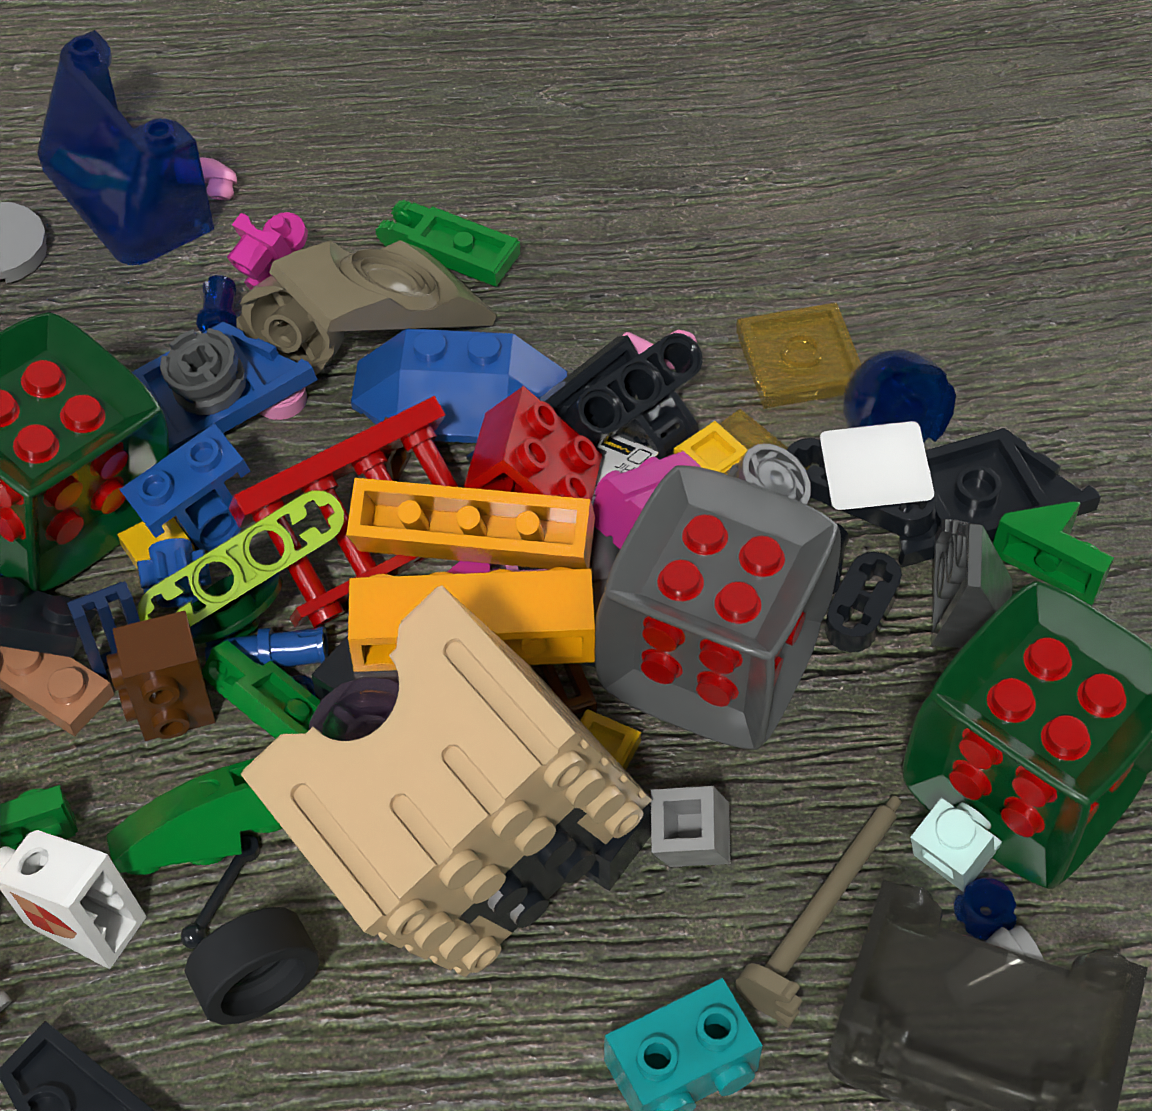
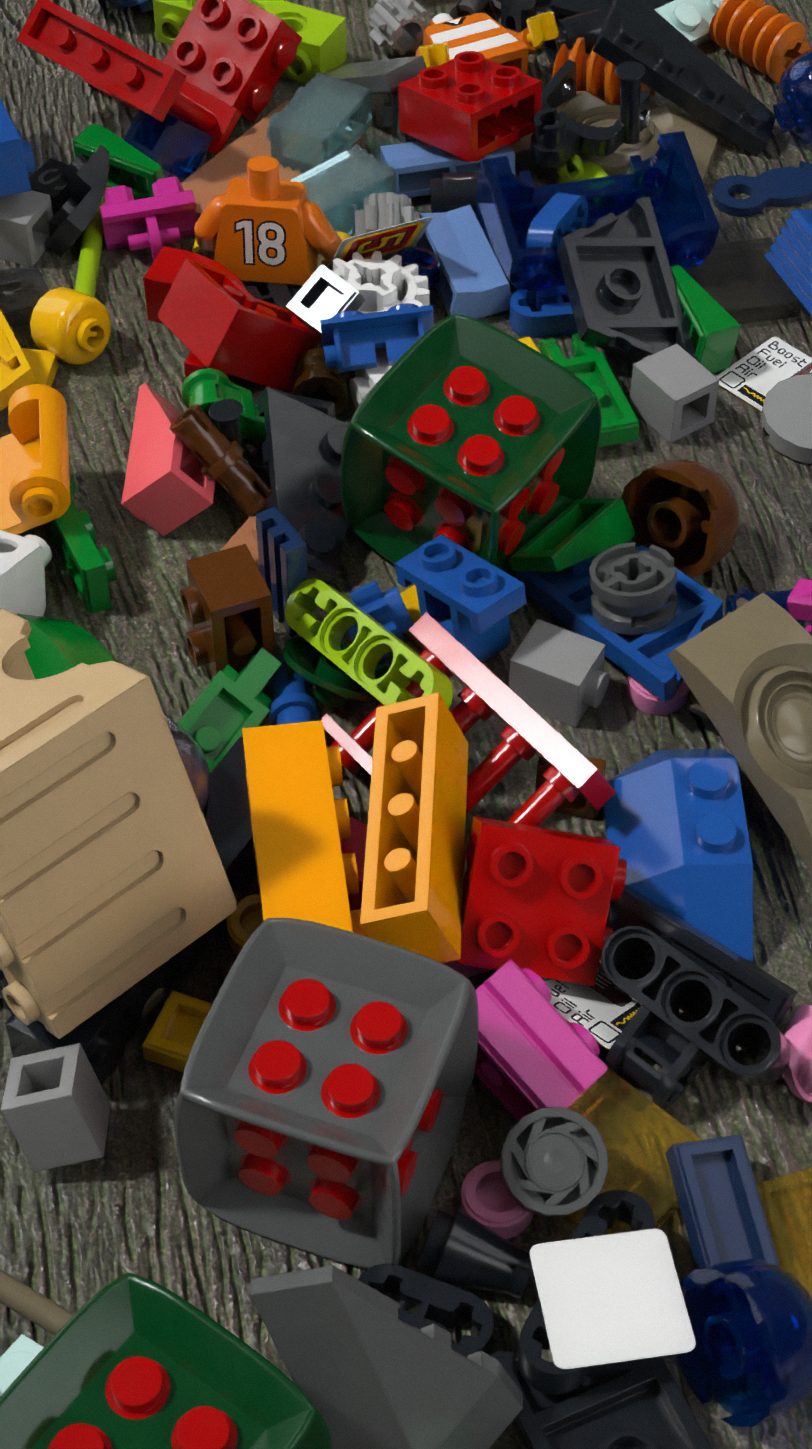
camera: 85 degrees right, 5 degrees down
(122, 323) = (685, 512): none -> reddish brown cylinder
(267, 443) = (559, 672): none -> light grey brick
(713, 448) = (625, 1115): yellow tile -> none
(788, 411) = (720, 1201): none -> dark blue tile

